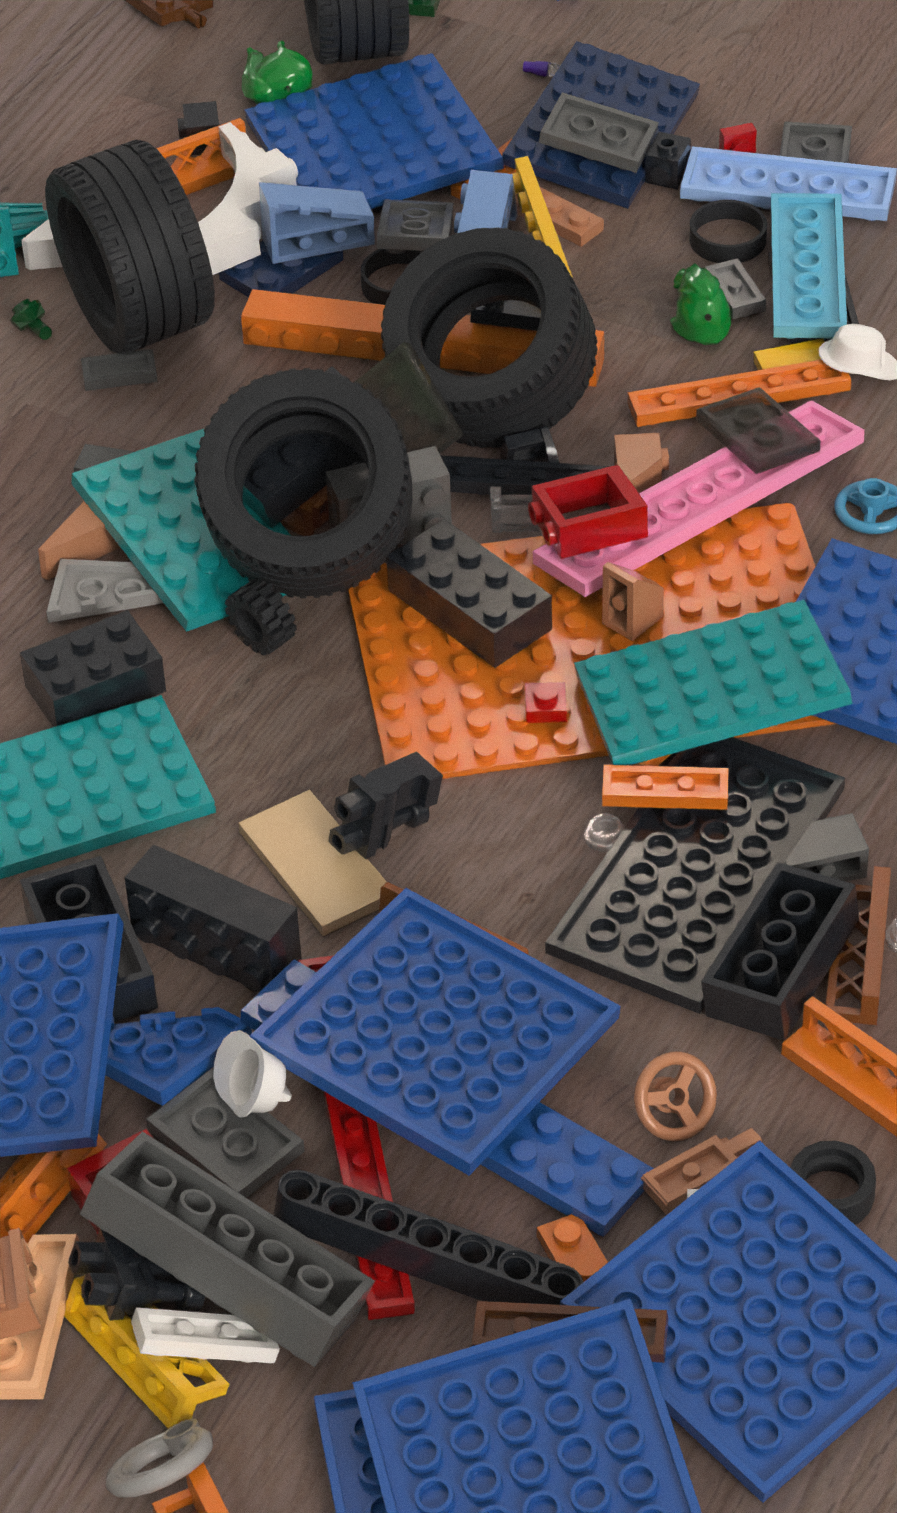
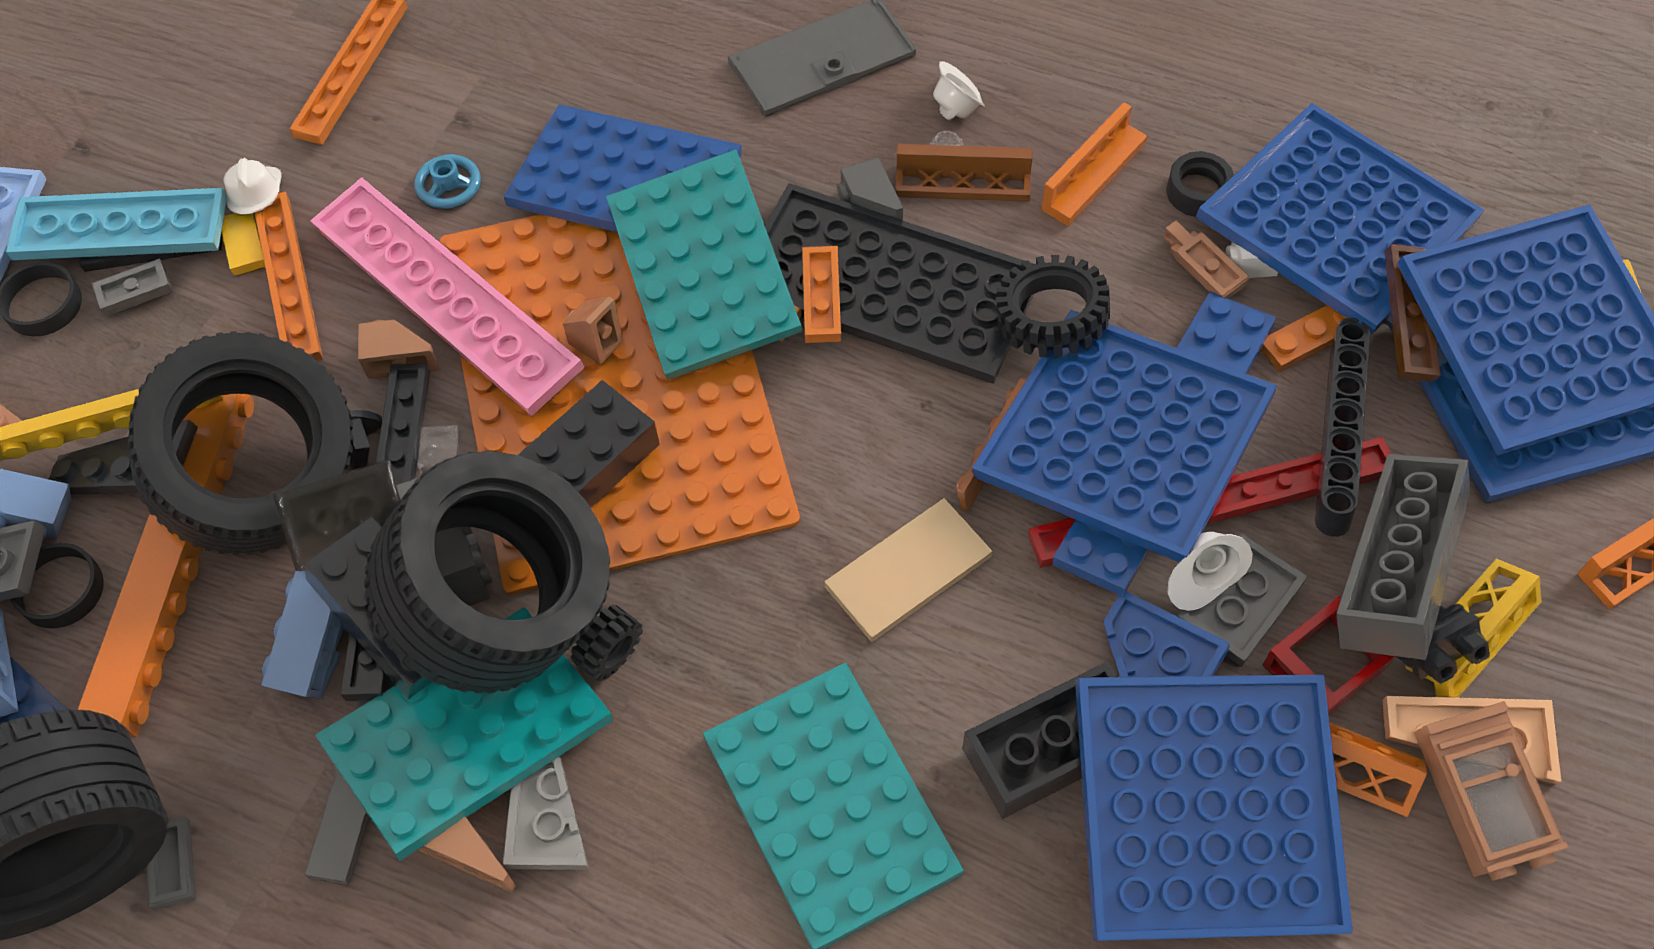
camera: 95 degrees left, 15 degrees up
(93, 670) = (679, 800): black brick -> none
(183, 1440) = (1617, 565): light grey piece -> none
(200, 1336) = (1479, 585): white plate -> none
(211, 919) = (1021, 628): black brick -> none
(384, 801) = (868, 492): black hips -> none
(545, 702) = (709, 396): plate -> none
(594, 531) = (474, 332): red window -> none
(602, 831) = (856, 348): clear plate -> none
(611, 1010) = (1060, 334): none -> black tyre
(656, 1095) = (1143, 278): nougat piece -> none
(700, 296) = (161, 303): green piece -> none
(758, 430) = (358, 251): clear smoke tile -> none
(780, 951) = (991, 208): black brick -> none

